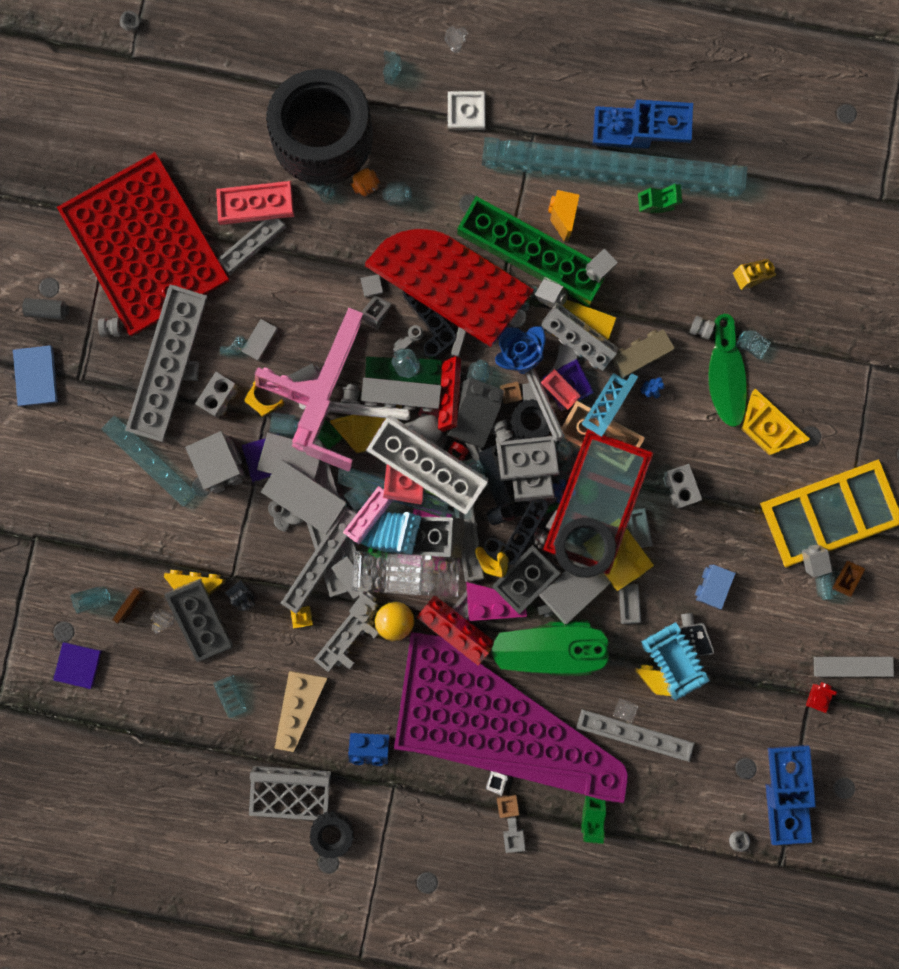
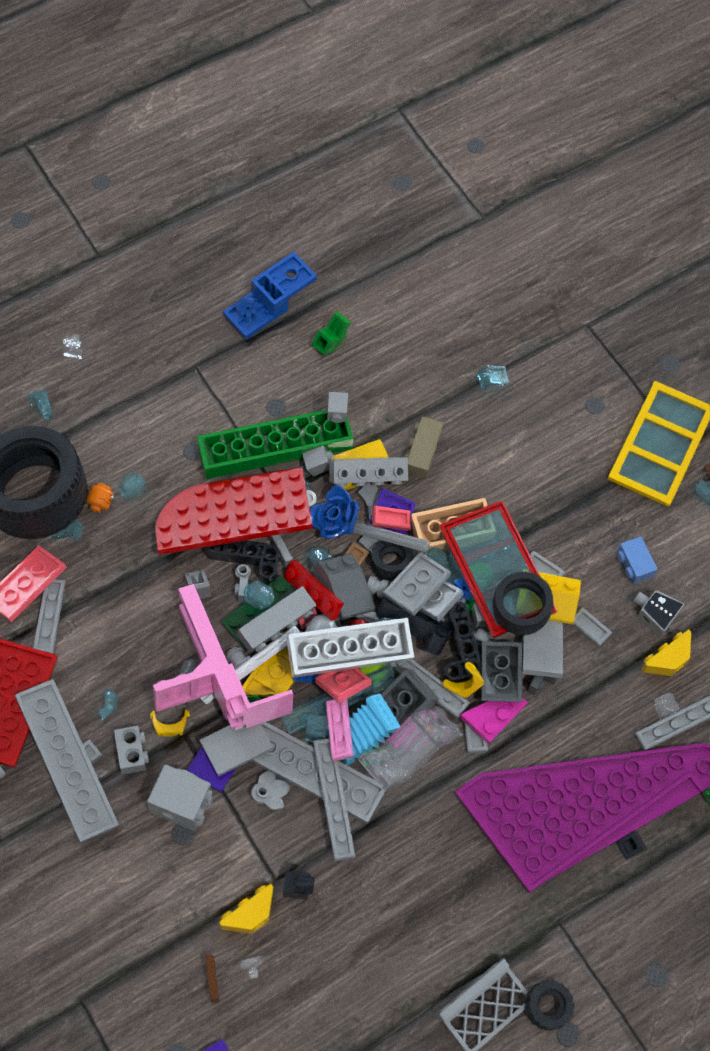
camera: 50 degrees left, 20 degrees down
(90, 600) = (177, 1000): clear light blue slope -> none
(149, 461) = (121, 851): clear light blue tile -> none
(198, 620) = (282, 934): dark grey tile -> none
(237, 694) = (367, 968): clear light blue slope -> none
(259, 340) = (124, 681): light grey tile -> none
(283, 424) = (205, 724): clear light blue brick -> none
(298, 704) = (423, 930): tan wing -> none
(303, 496) = (275, 761): light grey tile -> none
(303, 618) = (361, 861): yellow tile -> none
(336, 648) = (410, 857): light grey hinge -> none
(344, 572) = (368, 791): light grey tile -> none
(364, 607) = (402, 802): light grey bracket -> none
(368, 749) = (511, 912): blue bracket -> none
(371, 285) = (175, 568): light grey tile -> none
(394, 621) = (435, 794): yellow tile -> none
(456, 630) = (487, 757): red brick -> none
(466, 110) = (128, 389): white tile -> none
(507, 806) = (655, 856): medium nougat tile -> none
(513, 838) = (684, 874): light grey plate -> none
(552, 649) = (573, 704): green piece -> none
(563, 212) = (273, 397): light orange slope -> none
(614, 166) = (272, 342): clear light blue brick -> none
(615, 404) = (442, 496): medium azure fence -> none
(652, 388) = (454, 463): blue plant -> none
(676, 660) = (664, 629): medium azure piece -> none
(687, 484) = (546, 508): light grey brick -> none
(702, 327) = (446, 395): light grey wheel -> none
(727, 374) = (495, 411): green plant -> none
(753, 273) = (446, 330): yellow slope -> none
(769, 426) = (560, 421): yellow wing -> none
(816, 560) = (685, 480): light grey brick -> none

